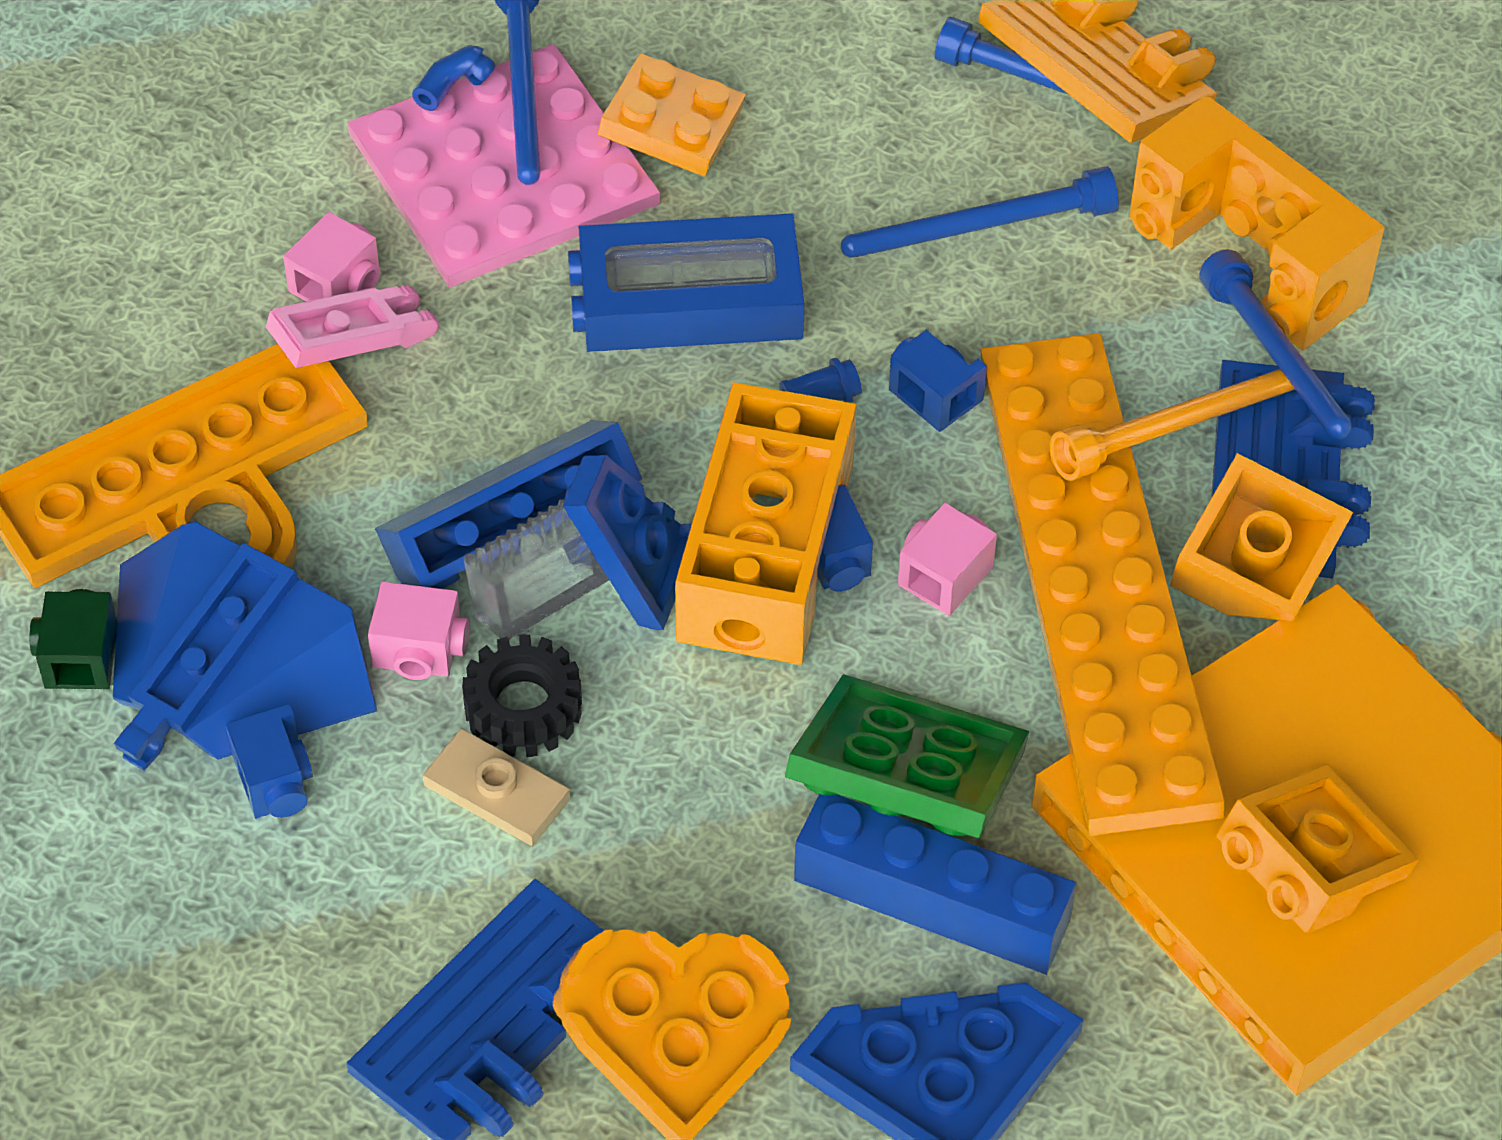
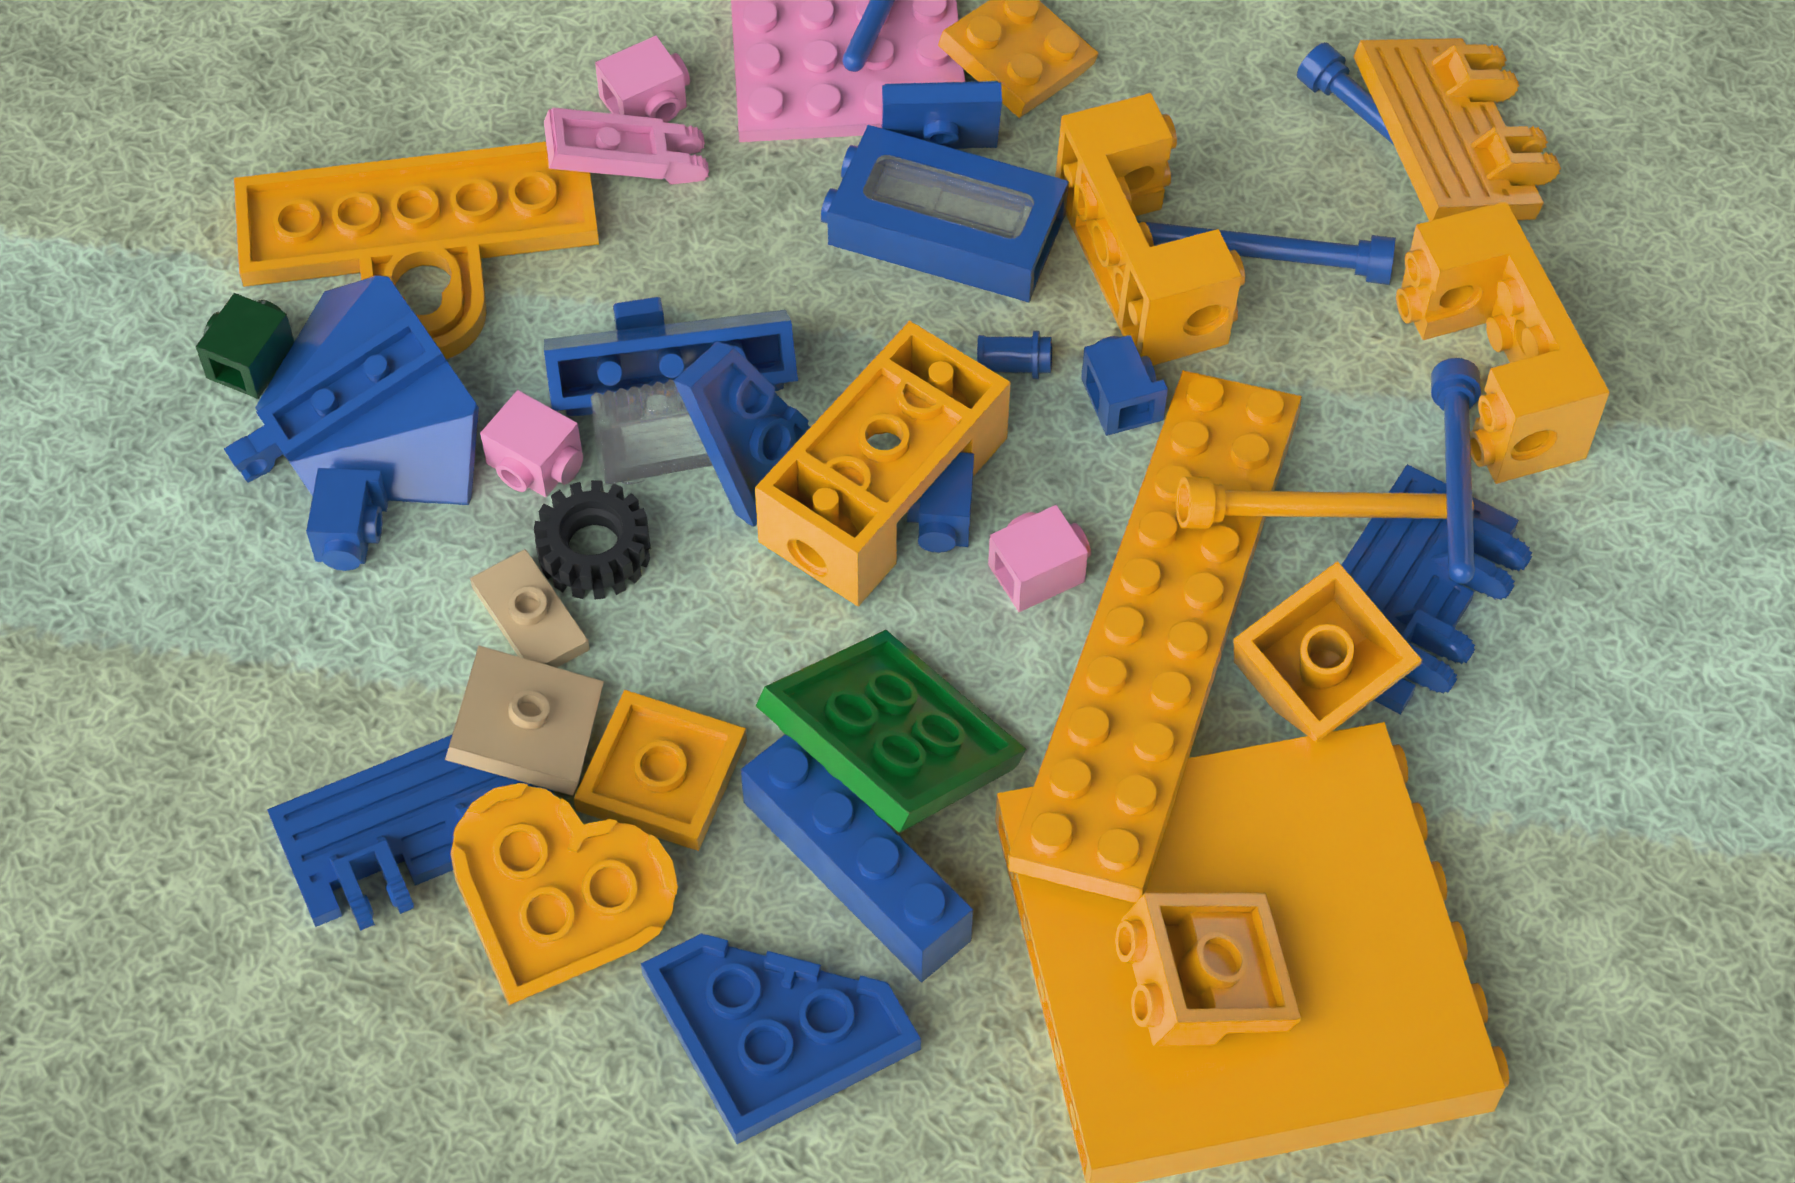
camera: 25 degrees right, 5 degrees up
(450, 474) = (638, 313): none -> blue piece
(554, 881) = (525, 720): none -> tan plate
(648, 189) = (945, 112): none -> blue plate
(706, 875) = (661, 769): none -> light orange plate
(940, 284) = (1166, 295): none -> light orange plate

